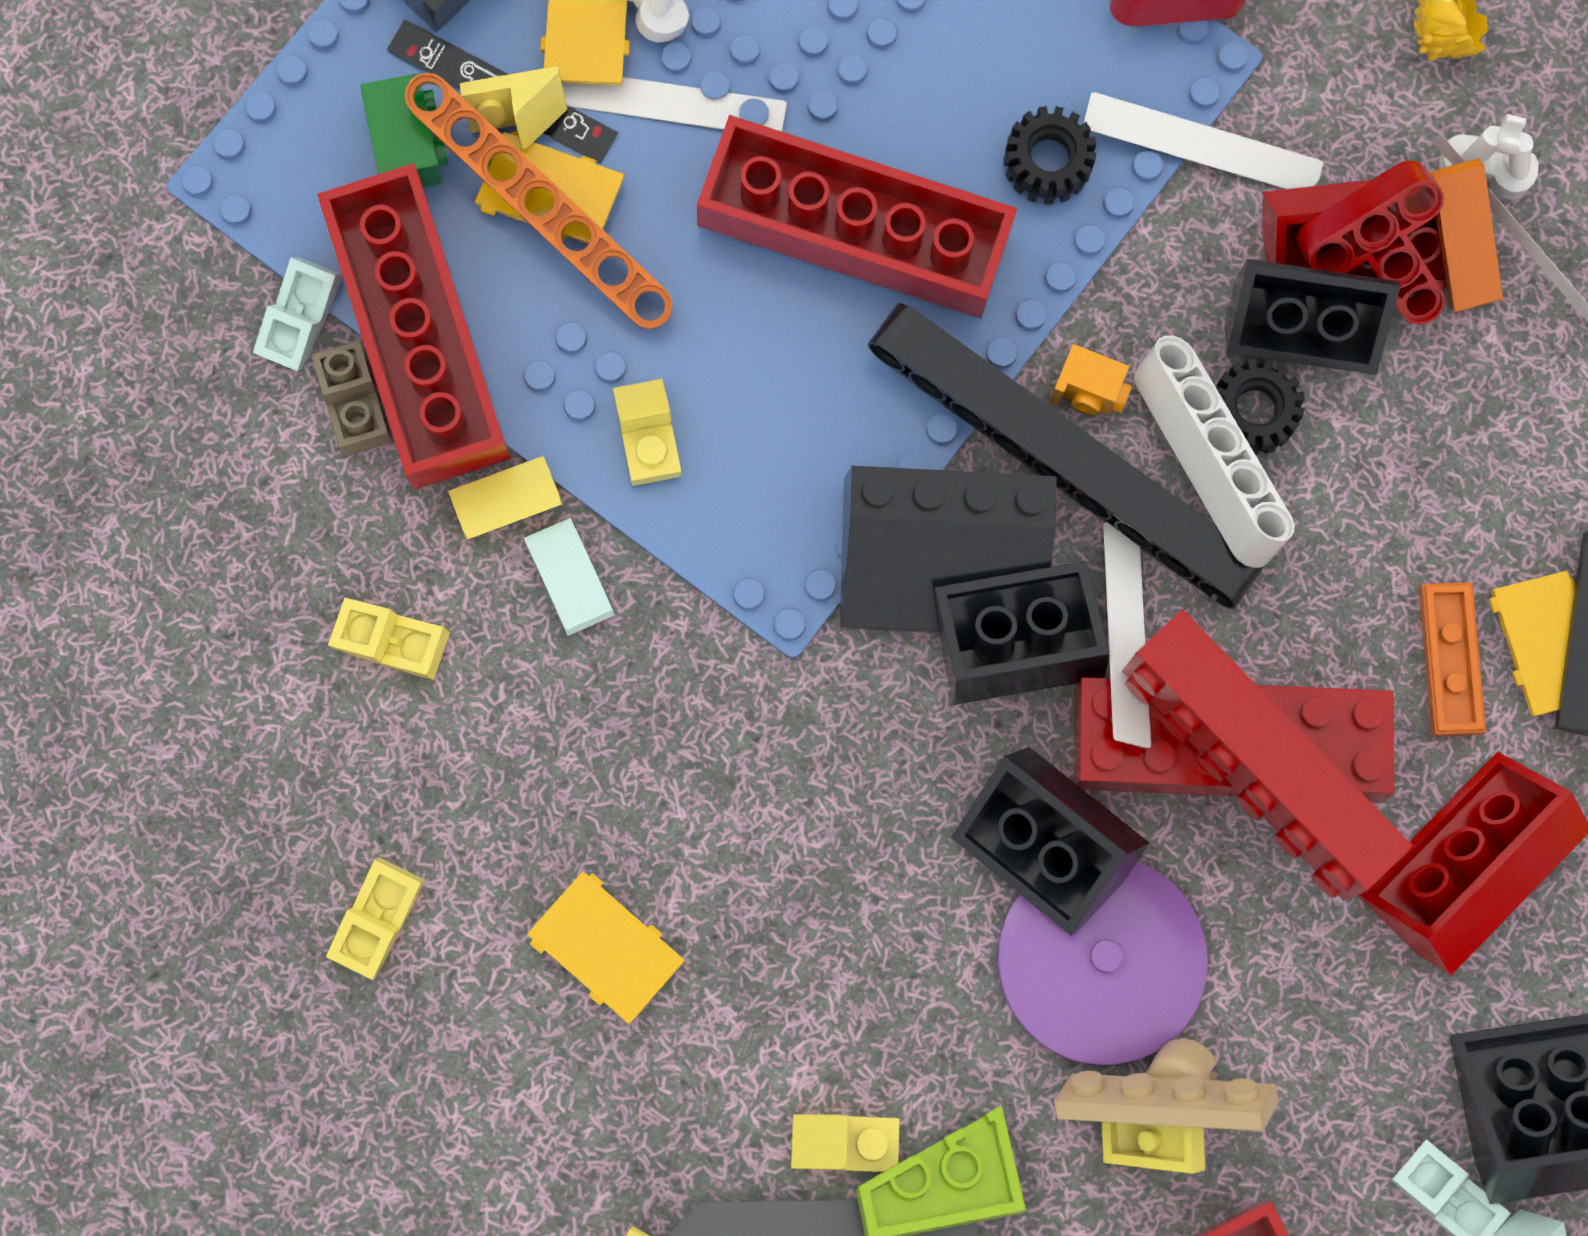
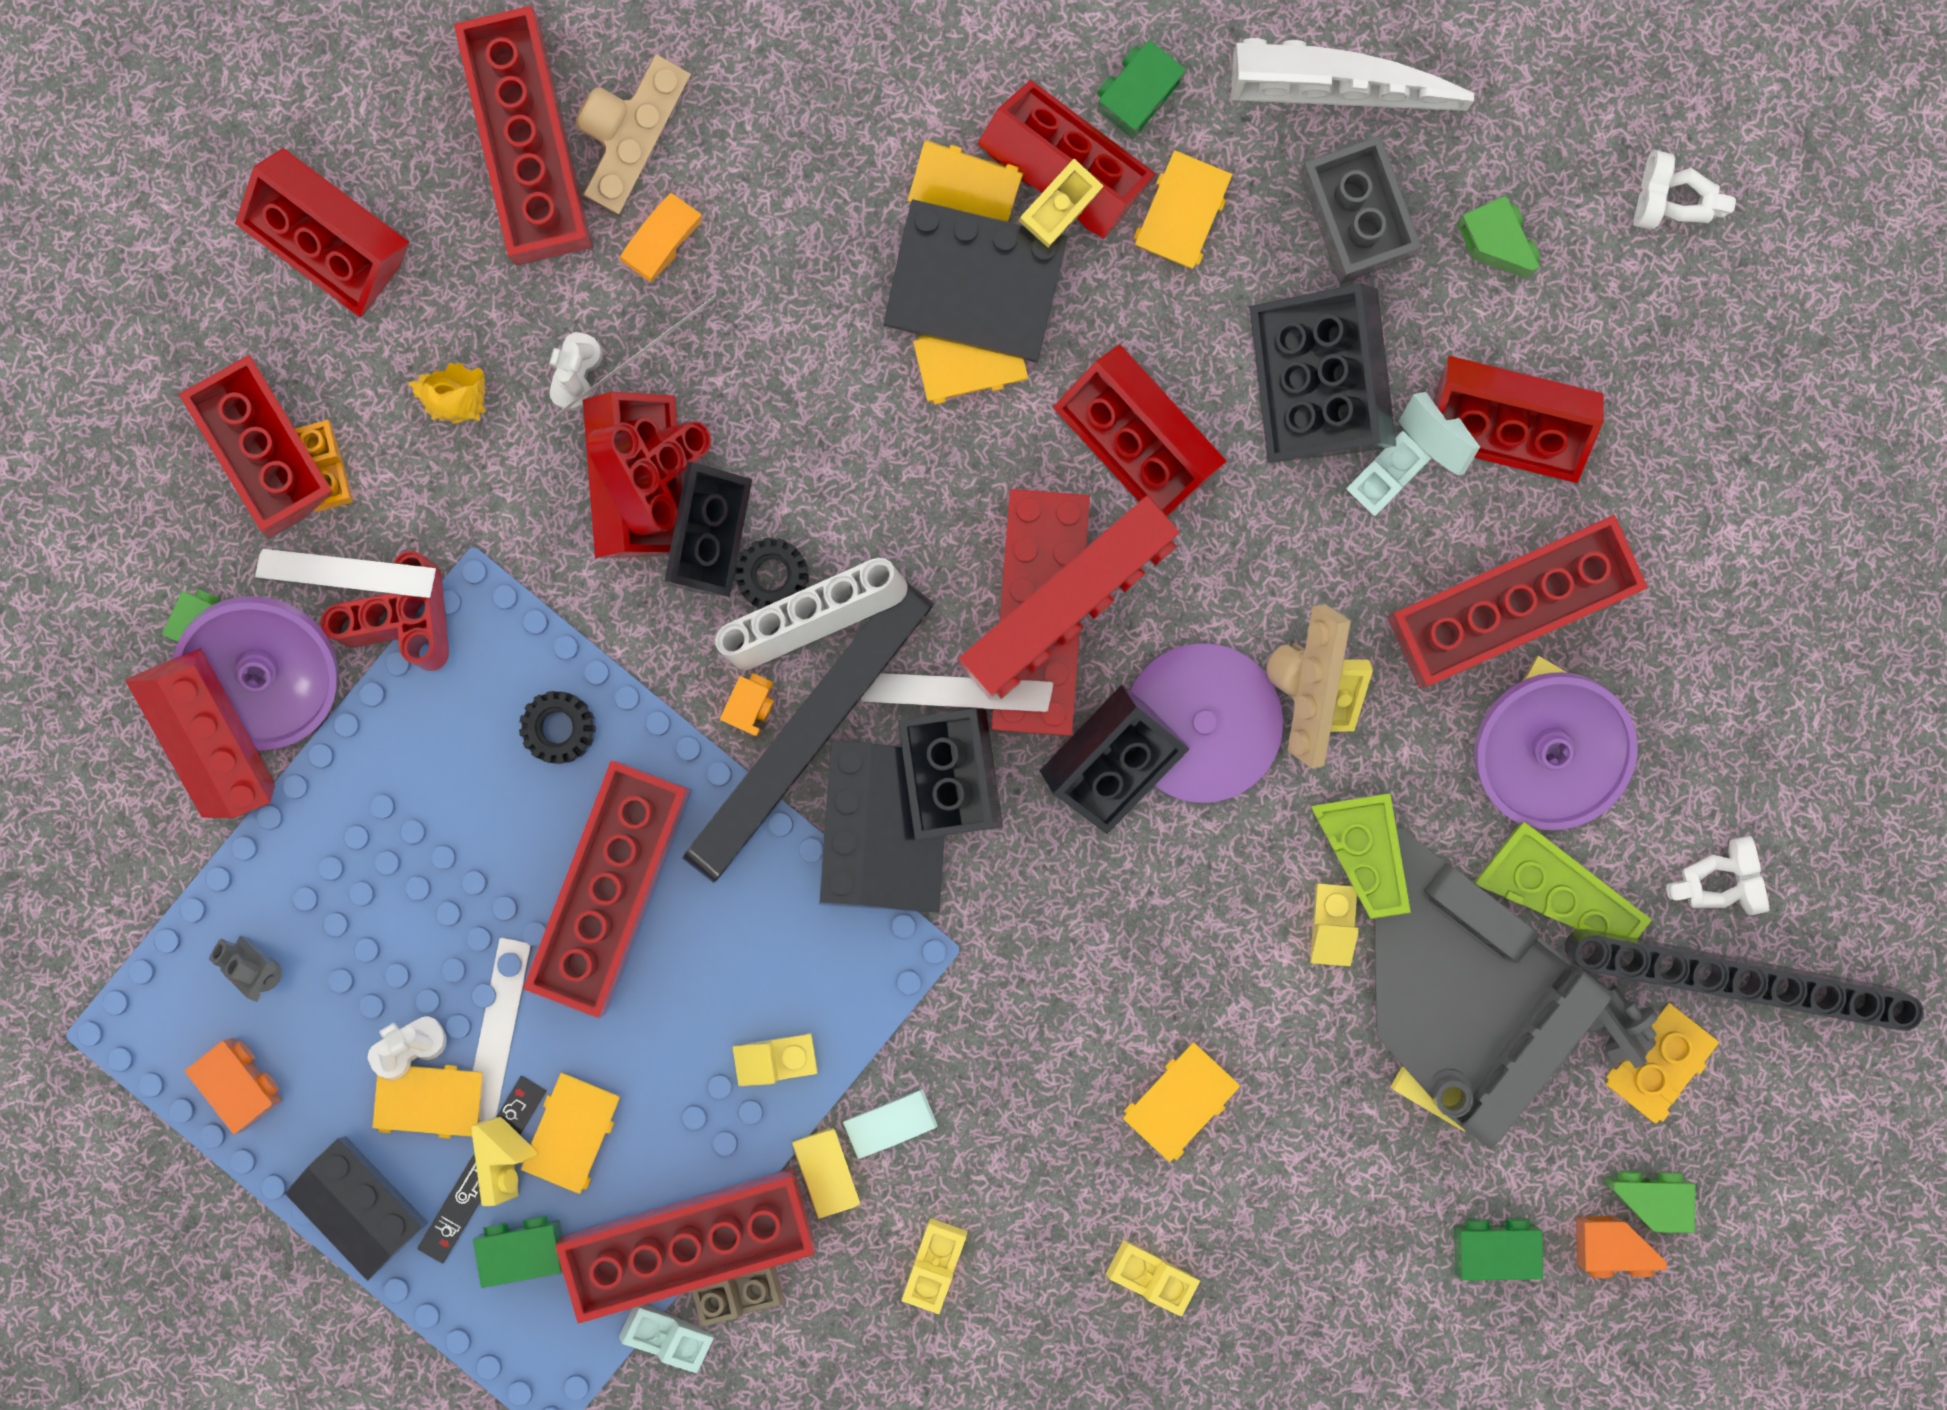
camera: 80 degrees left, 10 degrees up
(525, 180) = (580, 1163): orange beam -> none
(1201, 143) = (549, 602): white sticker -> none
(1452, 659) = (979, 436): orange tile -> none
(1467, 236) = (642, 399): orange tile -> none

